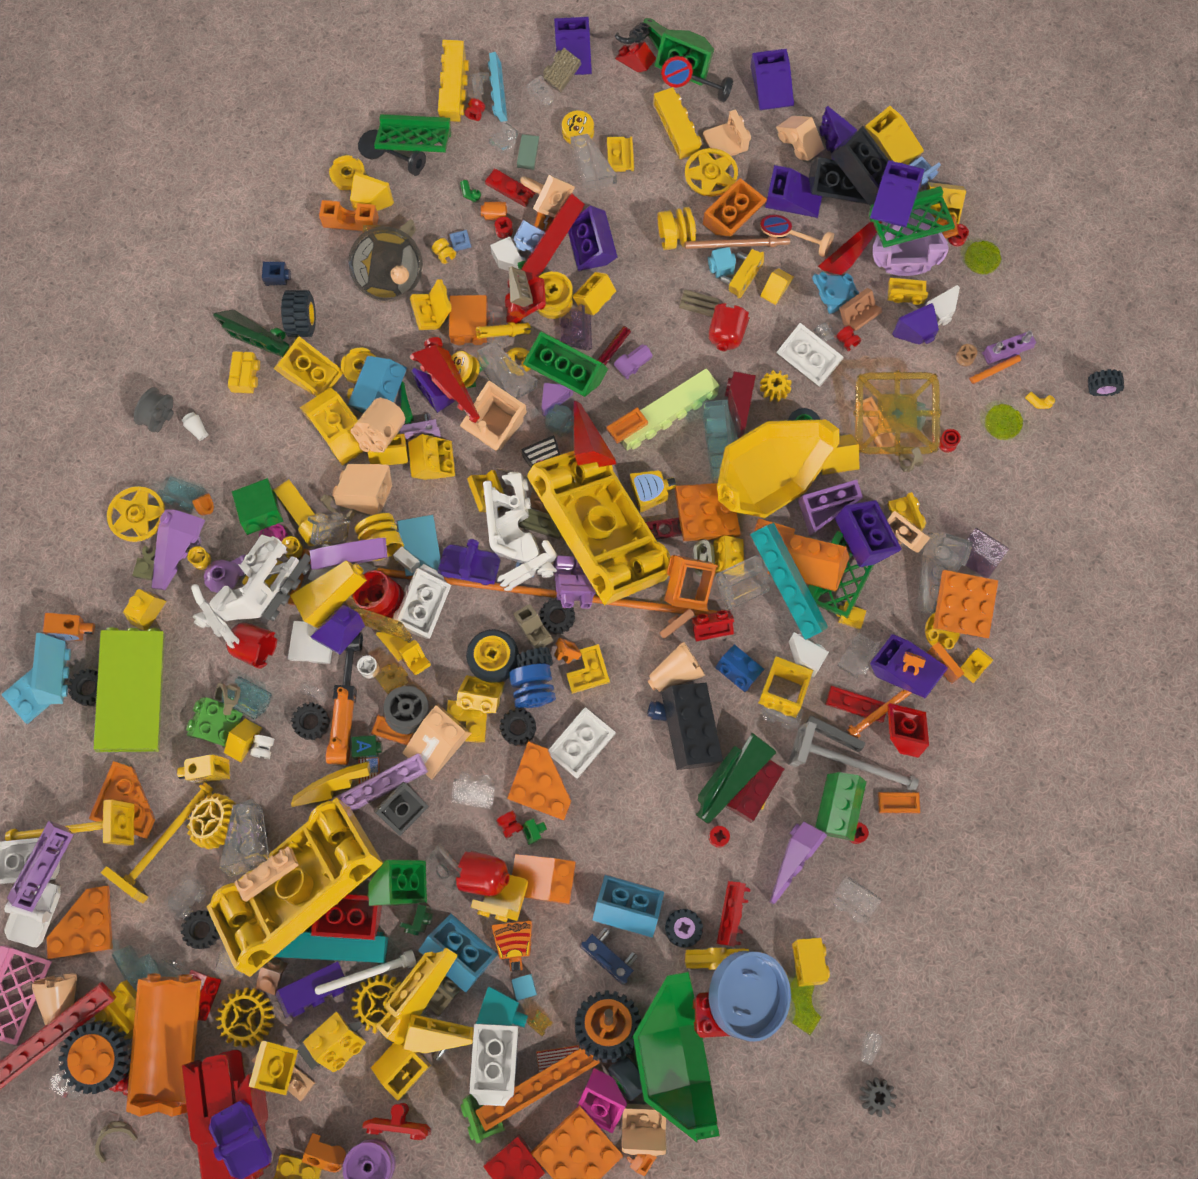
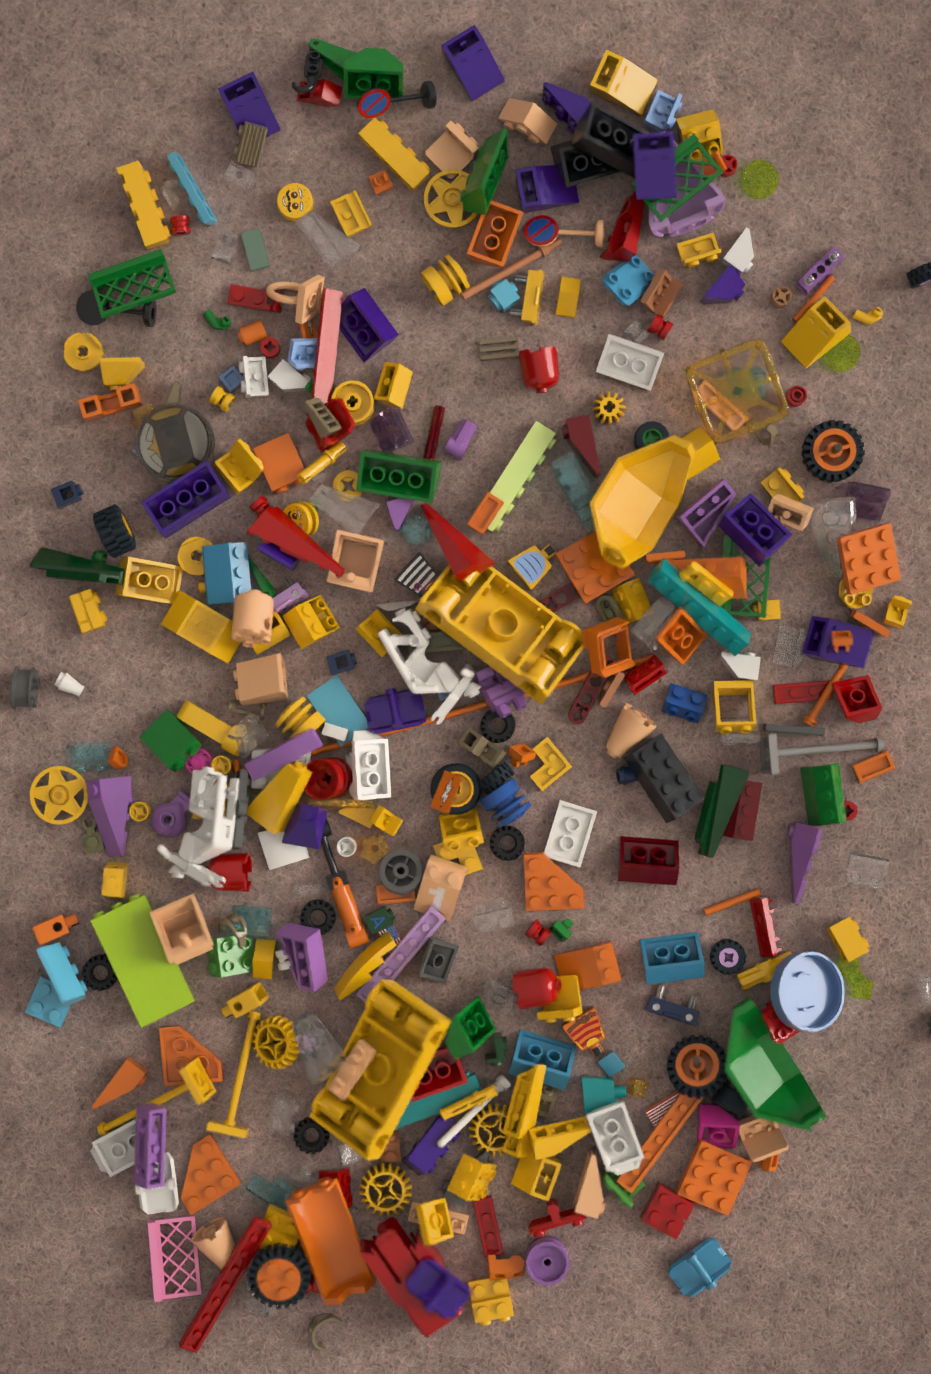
camera: 20 degrees left, 15 degrees up
(57, 796) = (125, 1080): none -> orange slope
(178, 674) = (182, 929): none -> light nougat piece
(280, 749) = (306, 955): none -> medium lavender wedge
(328, 1103) = (488, 1226): none -> red tile
(366, 960) = (468, 1102): none -> yellow pin
(372, 315) = (186, 499): none -> dark purple slope
(399, 274) = (193, 447): light nougat plate -> none
(436, 498) = (333, 662): none -> dark blue brick
(444, 1111) = (589, 1195): none -> light nougat slope
(479, 244) = (254, 376): none -> white bracket
(481, 651) = (446, 792): none -> orange slope
(644, 800) = (648, 860): none -> dark red slope
(655, 616) = (587, 688): none -> dark red beam
(656, 140) = (380, 182): none -> orange tile
(715, 876) = (732, 901): none -> orange bar
(718, 840) = (724, 863): red wheel -> none
(748, 158) = (486, 173): none -> green slope
(759, 599) = (680, 636): none -> orange slope
(804, 560) = (706, 583): none -> yellow plate
(966, 499) = (833, 451): none -> wheel
(989, 393) = (816, 332): none -> yellow slope

